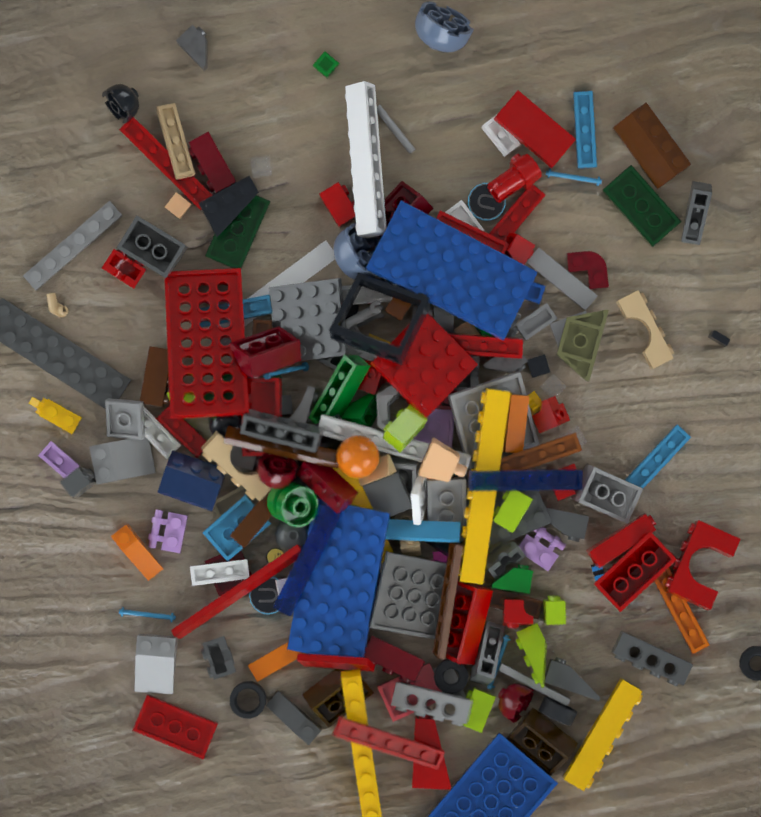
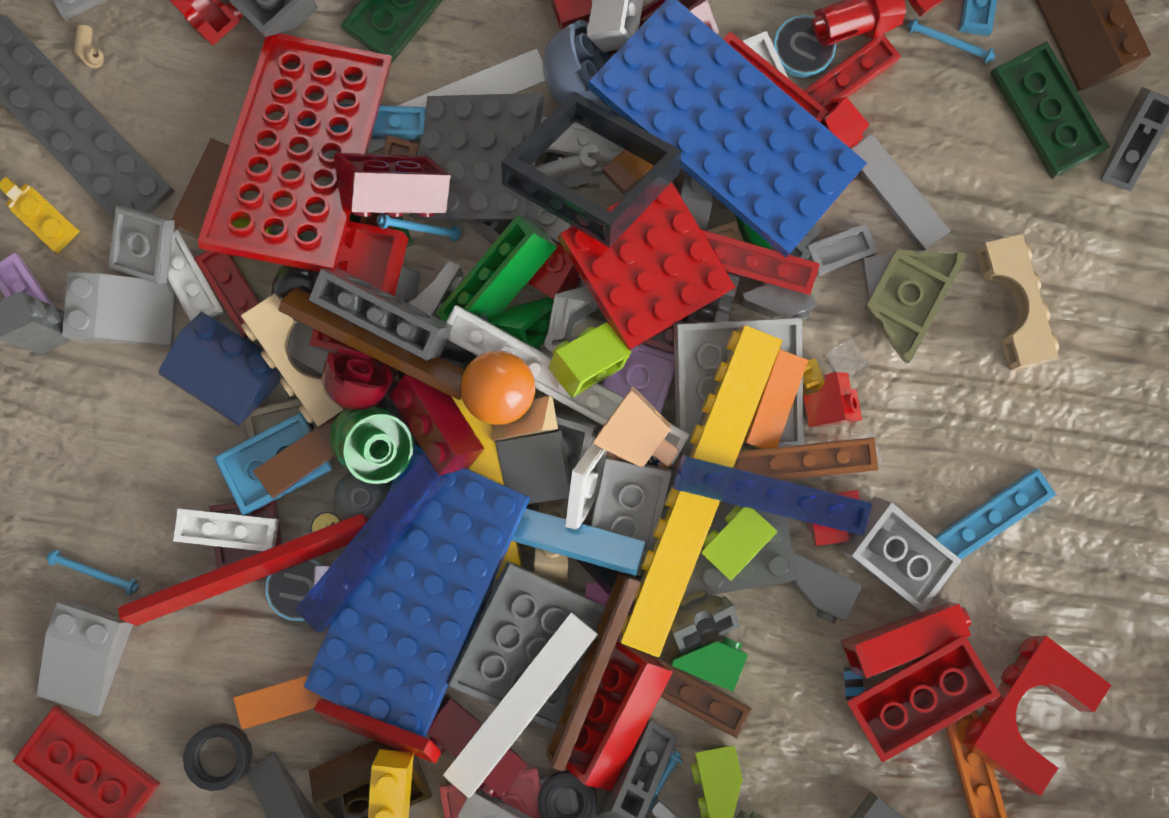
camera: 15 degrees right, 5 degrees down
(137, 551) = (102, 462): orange slope -> none
(173, 533) = (173, 447): lavender plate -> none
(219, 658) = (188, 674): dark grey cylinder -> none
(412, 628) = (520, 705): none -> white tile
(515, 615) = (701, 722): red brick -> none
(535, 293) = (849, 205): blue tile -> none
(538, 366) = (829, 321): black tile -> none
(539, 553) = (762, 626): lavender plate -> none
(554, 610) = (769, 732): lime brick -> none
(593, 264) = (952, 181): dark red plate -> none
(719, 338) = (1136, 344): black tile -> none

